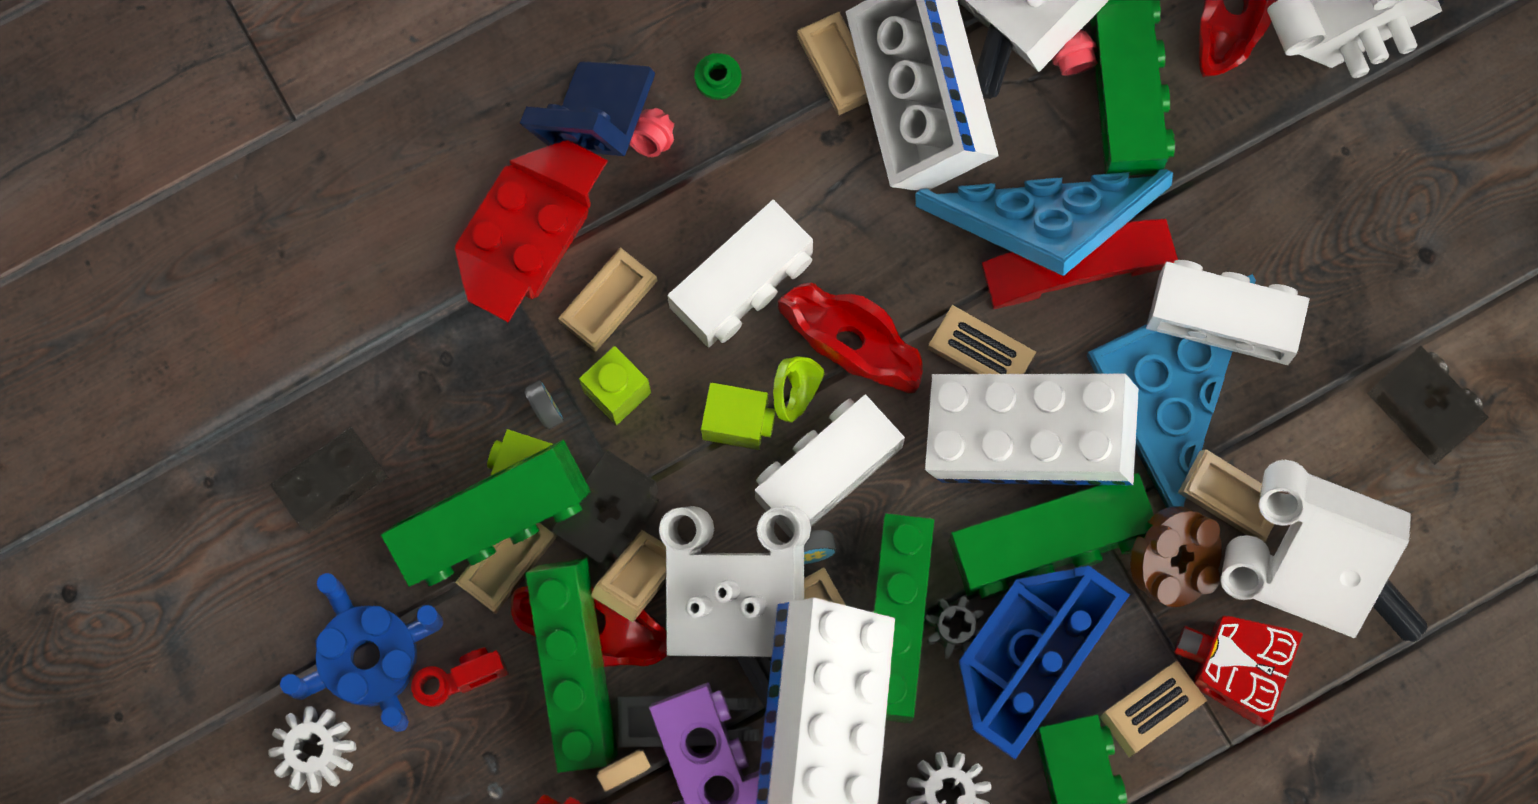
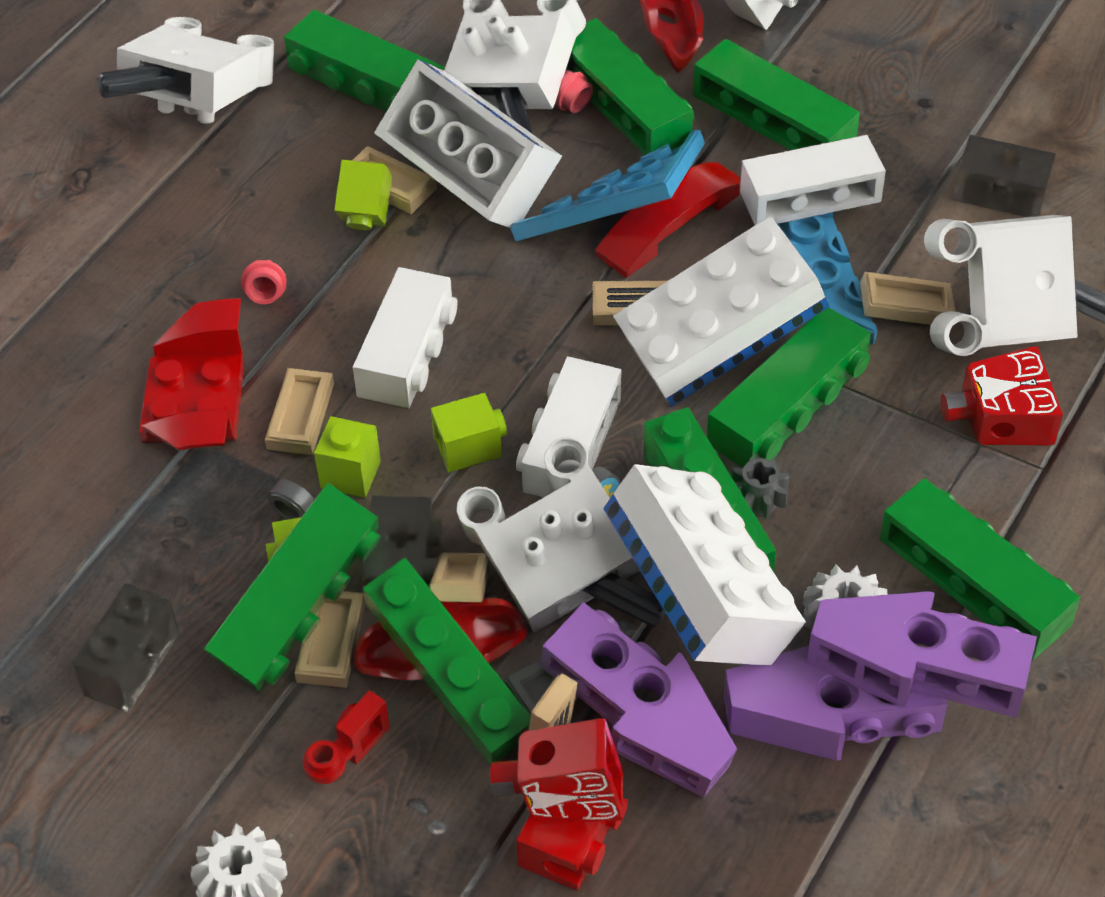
camera: 30 degrees left, 25 degrees down
(345, 634) = (236, 748): blue plate -> none
(597, 109) = (208, 274): dark blue bracket -> none
(718, 89) = (295, 227): green plate -> none
(794, 81) = (363, 194): none -> lime brick
(805, 380) = (505, 384): lime piece -> none
(883, 353) = (526, 335): red piece -> none
(1034, 650) = (839, 457): blue wedge -> none
(1153, 708) = (963, 463): tan tile -> none
(1199, 563) = (900, 348): reddish brown plate -> none
(1267, 183) = (771, 99): none -> green brick

